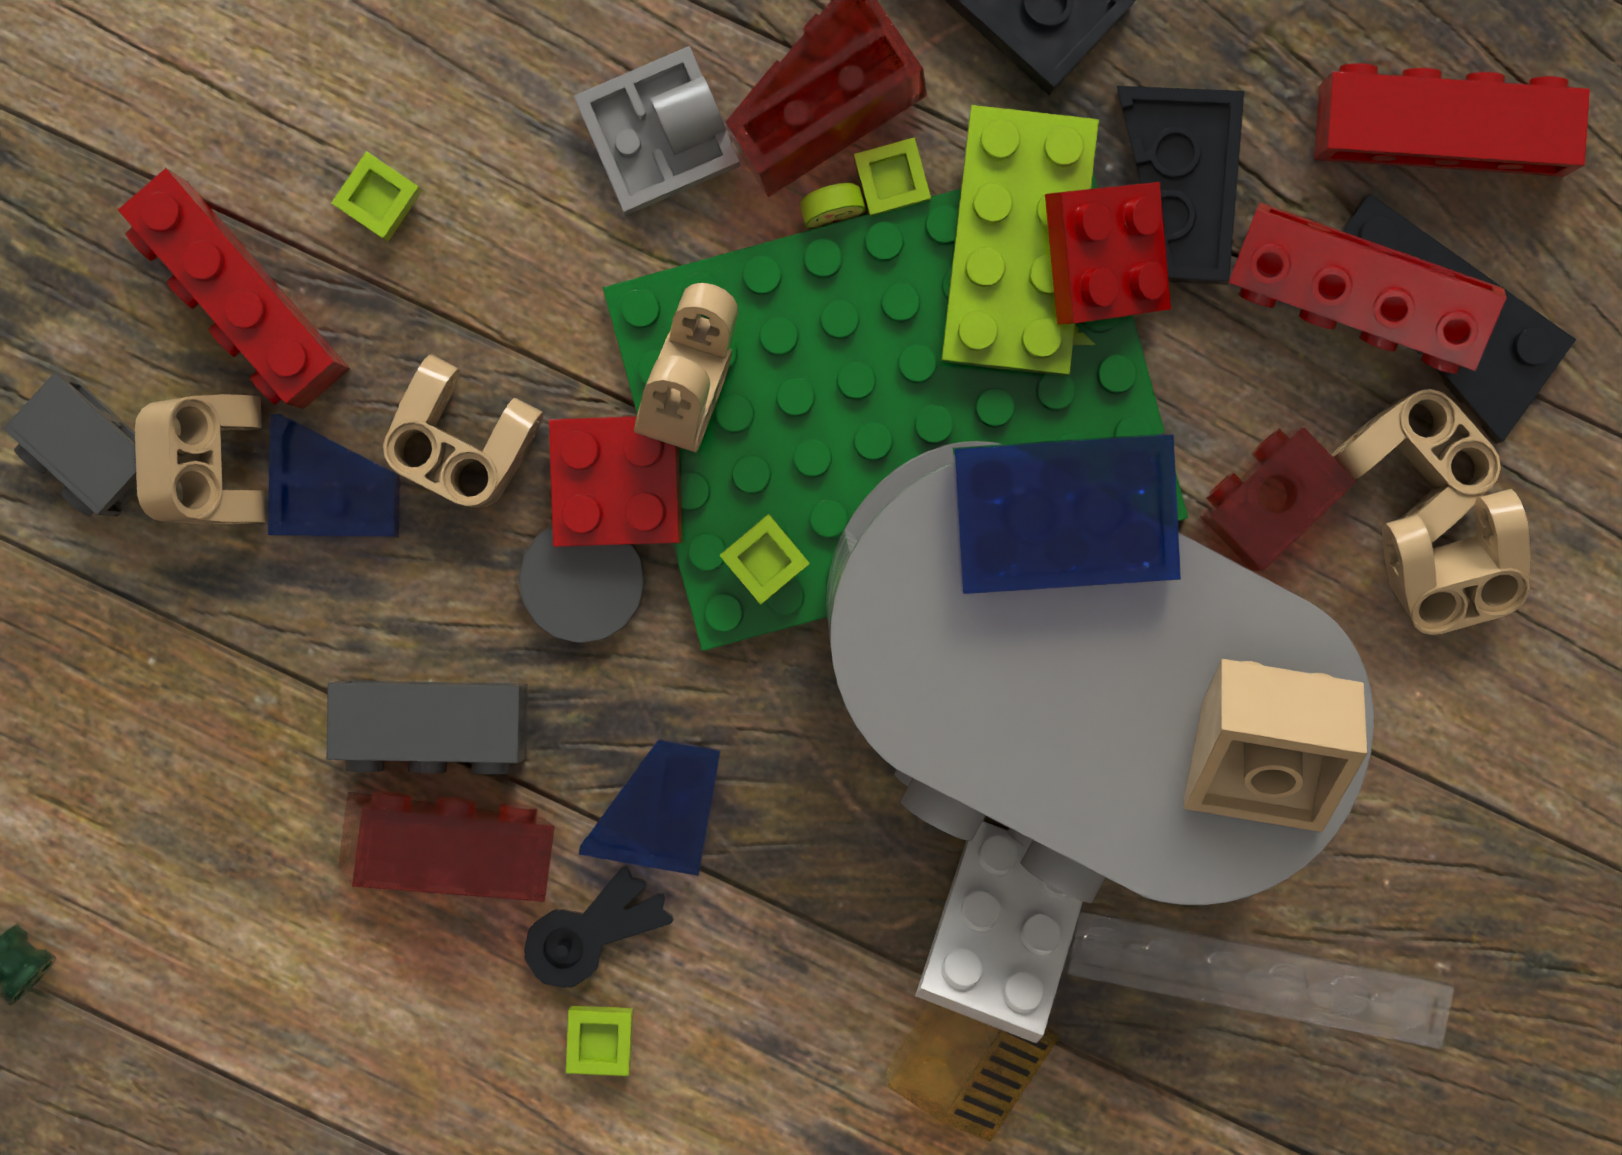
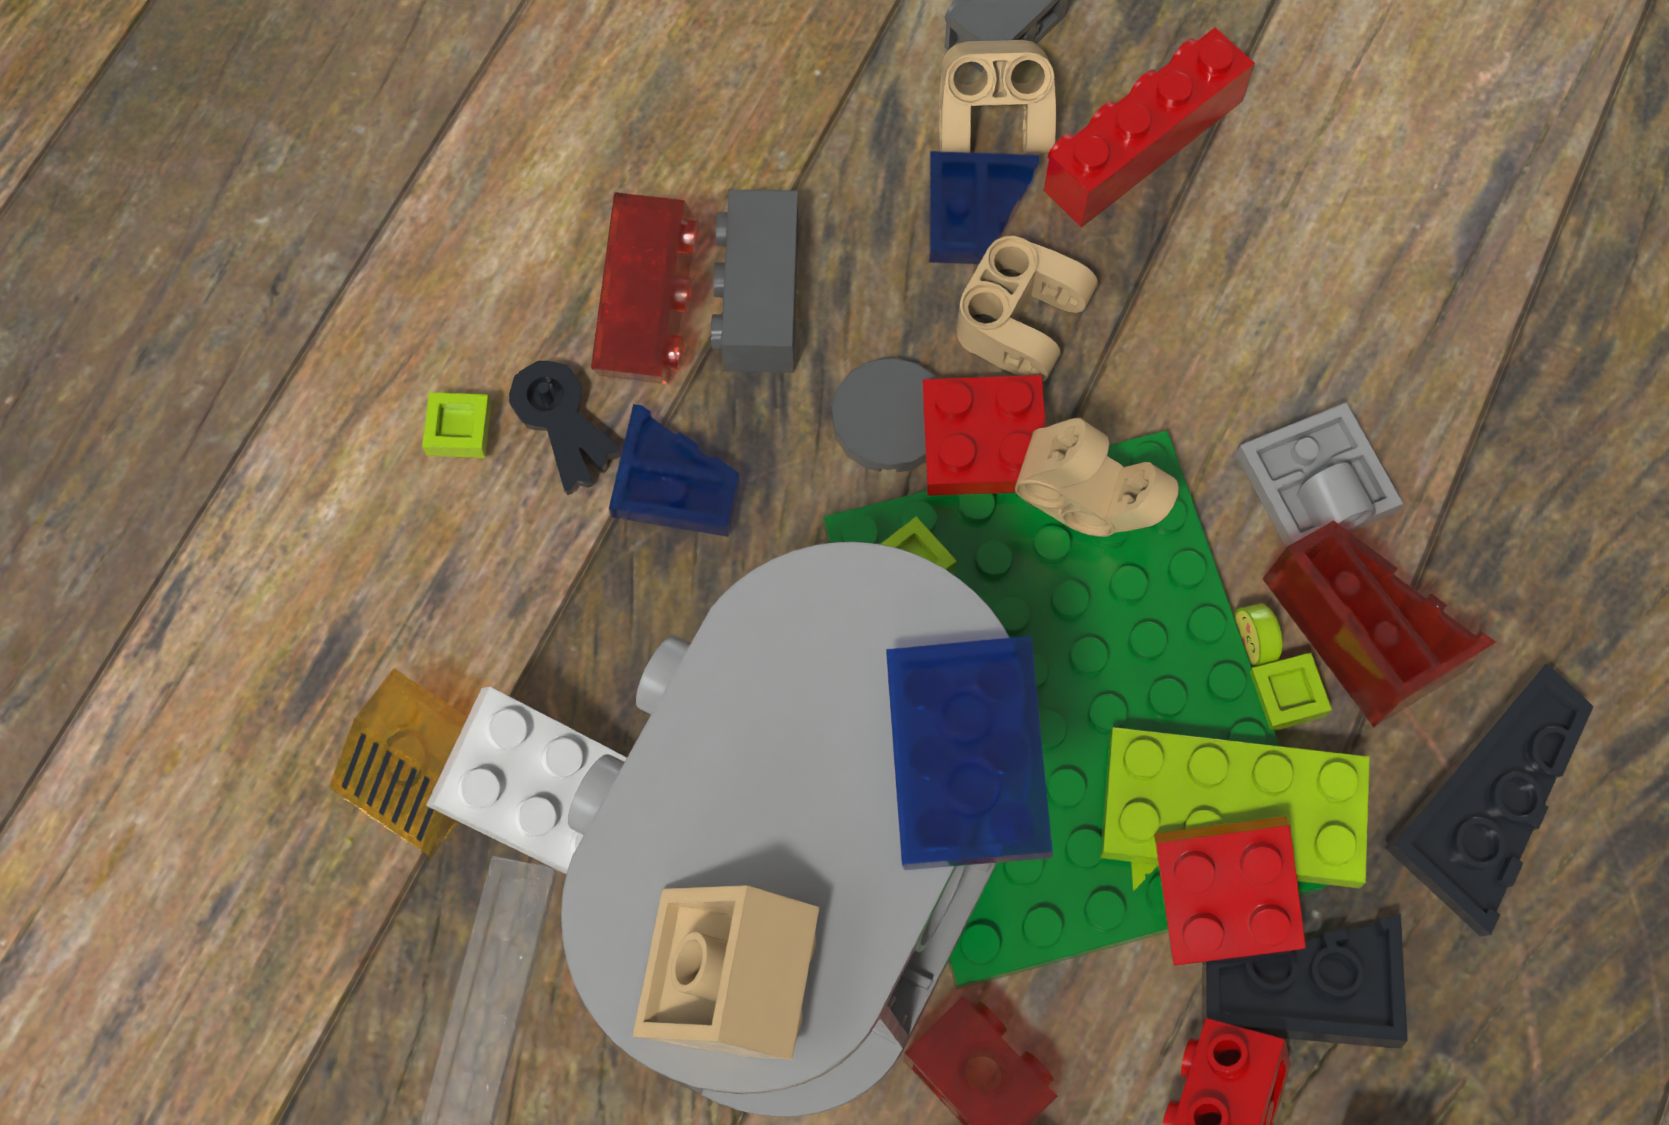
camera: 90 degrees right, 20 degrees down
(377, 196) = (1239, 242): lime plate -> none

